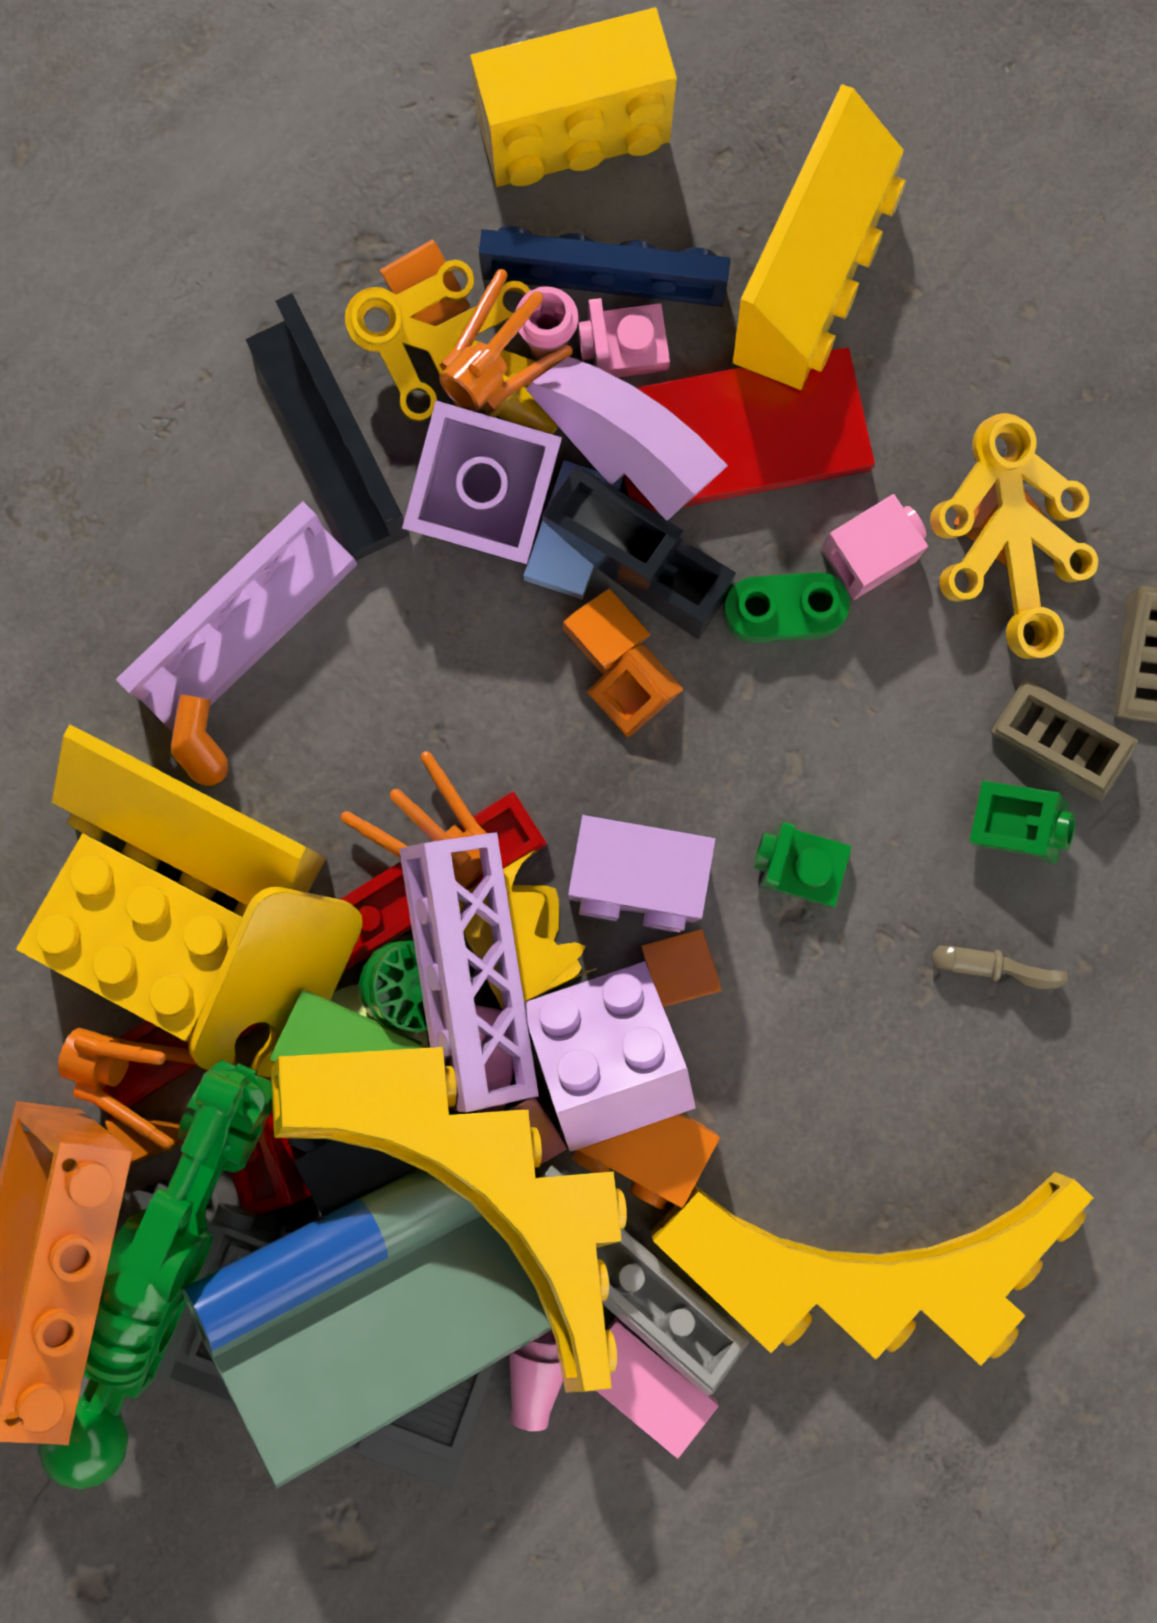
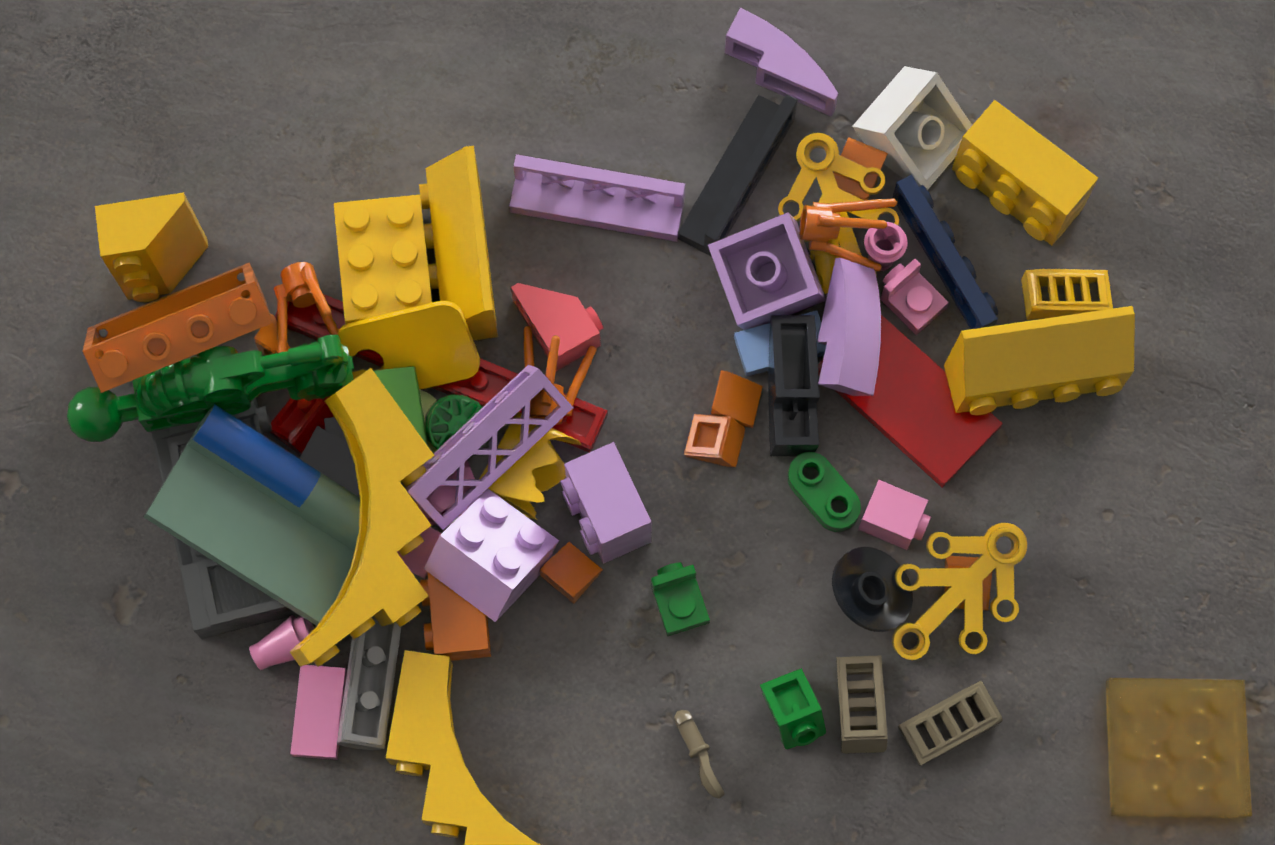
camera: 55 degrees right, 10 degrees down
(193, 745) = (509, 221): orange arm -> none
(224, 280) = (780, 62): none -> lavender slope
(362, 773) = (560, 315): none -> coral slope
(417, 182) = (915, 125): none -> white slope
(721, 203) = (1037, 278): none -> yellow slope
(947, 638) = (873, 573): none -> black dish

